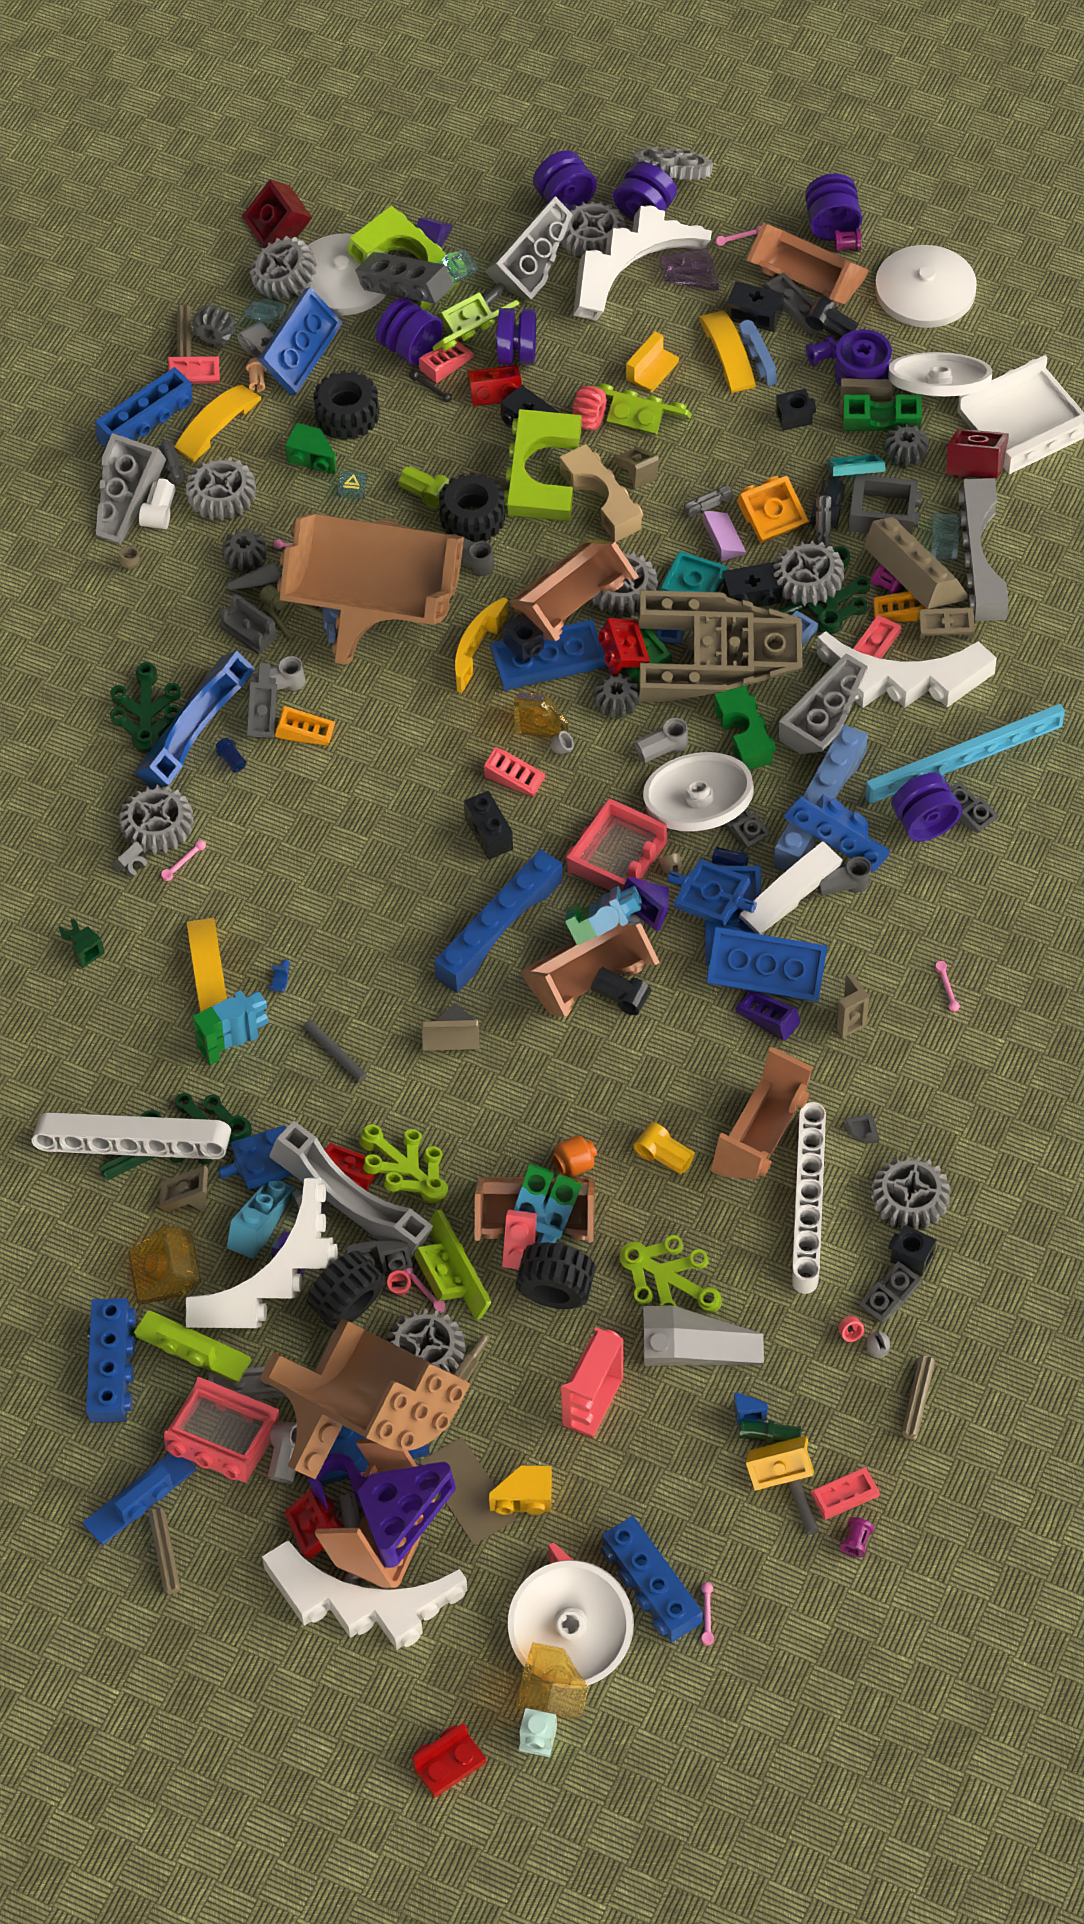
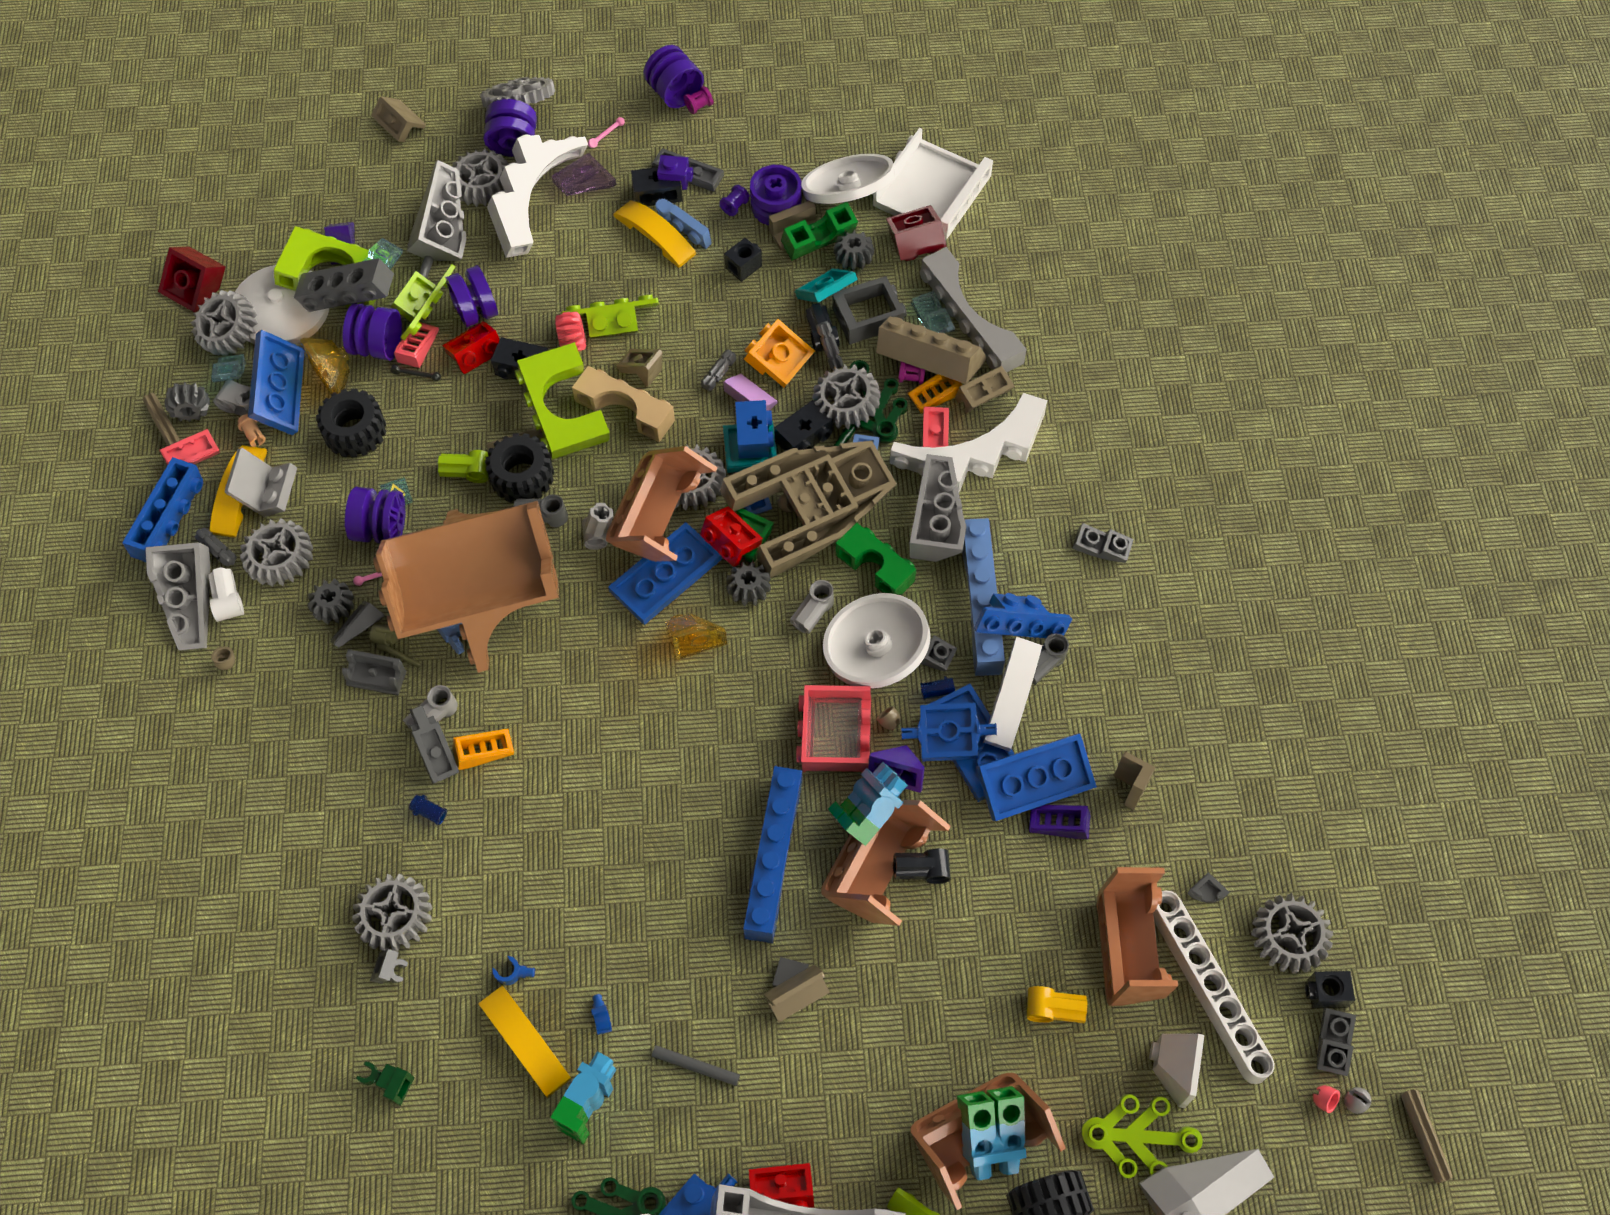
camera: 30 degrees left, 5 degrees up
(145, 710) = (321, 804): dark green plant -> none
(167, 874) = (432, 962): bright pink hinge -> none
(171, 749) = (369, 839): blue arch -> none
(228, 915) = (519, 972): none -> blue piece
(237, 423) = (260, 485): none -> light grey bracket
(310, 449) = (339, 476): green slope -> none
(320, 490) = (374, 515): none -> dark purple wheel
(356, 342) = (327, 362): none -> clear yellow slope
(429, 1186) = (834, 1154): lime plant -> none
(488, 825) = (708, 763): black brick -> none
(490, 620) = (595, 566): yellow slope -> none
(510, 583) = (596, 526): none -> light grey piece
(516, 765) = (691, 709): coral slope -> none
(519, 1233) = (990, 1179): coral plate -> none
(523, 637) = (637, 559): black brick -> none
(546, 138) = (396, 117): none -> dark tan panel
(562, 743) = (726, 650): light grey hinge -> none
(566, 178) = (434, 141): dark purple wheel -> none
(574, 1156) = (983, 1059): orange head -> none
(650, 364) = (598, 272): yellow panel -> none
(701, 563) = (752, 429): none -> blue brick
(738, 1237) = (1178, 1064): none -> white slope
(778, 297) = (675, 169): none -> dark purple bracket
(806, 264) = (681, 133): nougat windscreen -> none
(826, 317) = (722, 170): black piece -> none
(925, 286) = (782, 112): white dish -> none
(926, 807) = (1078, 561): dark purple wheel -> none
(941, 968) = (1173, 701): bright pink hinge -> none
(967, 752) = (1070, 498): medium azure tile -> none

